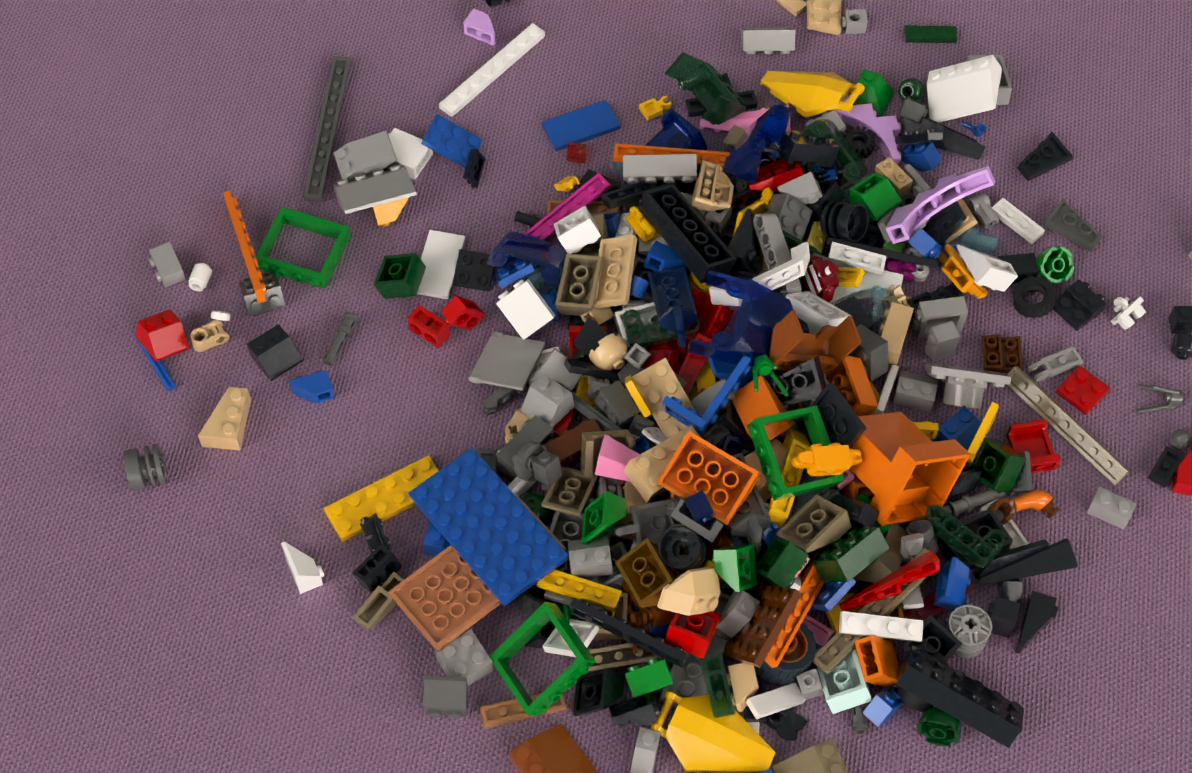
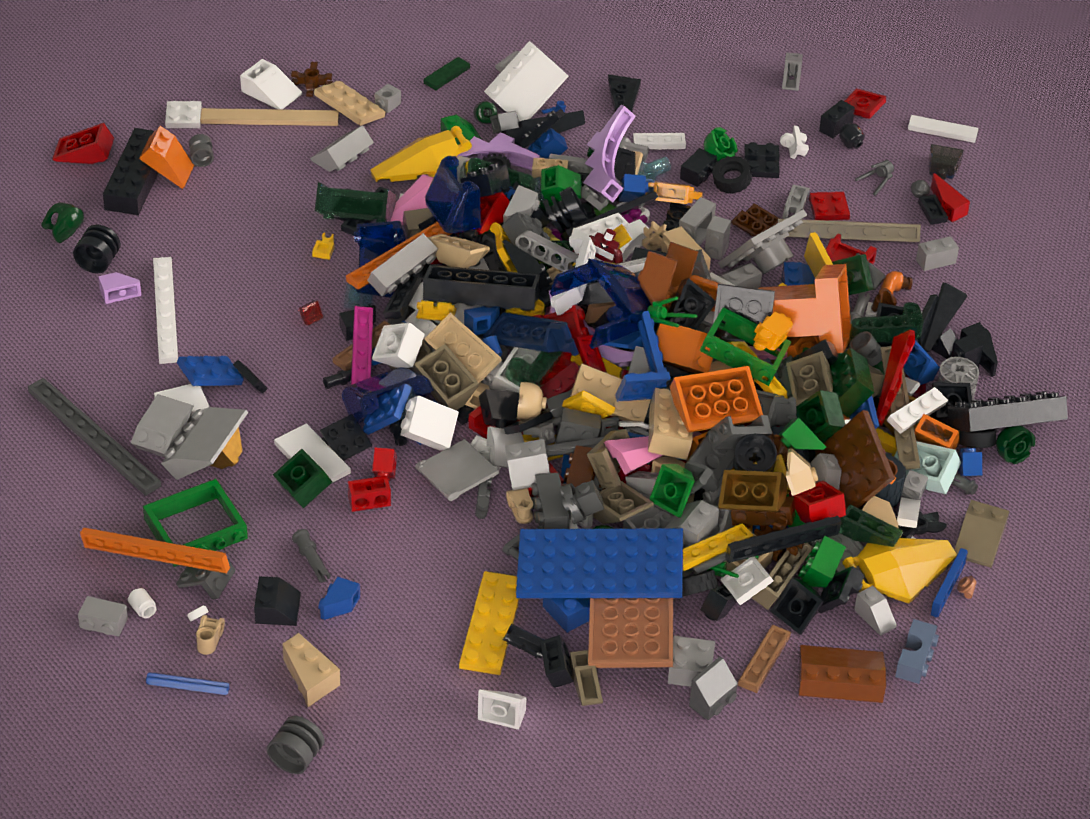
camera: 50 degrees left, 15 degrees down
(162, 335) = (174, 658): red slope -> none
(500, 657) = (784, 617): green window -> none
(566, 184) = (333, 335): yellow plate -> none
(581, 125) = (285, 296): blue tile -> none
(637, 356) = (551, 387): light grey slope -> none
(700, 507) = (741, 415): clear blue brick -> none
(876, 309) = (652, 233): clear light blue plate -> none
(911, 545) = (872, 351): light grey plate -> none
(988, 269) = (688, 173): white slope -> none
(1068, 224) = (690, 121): dark grey wing -> none

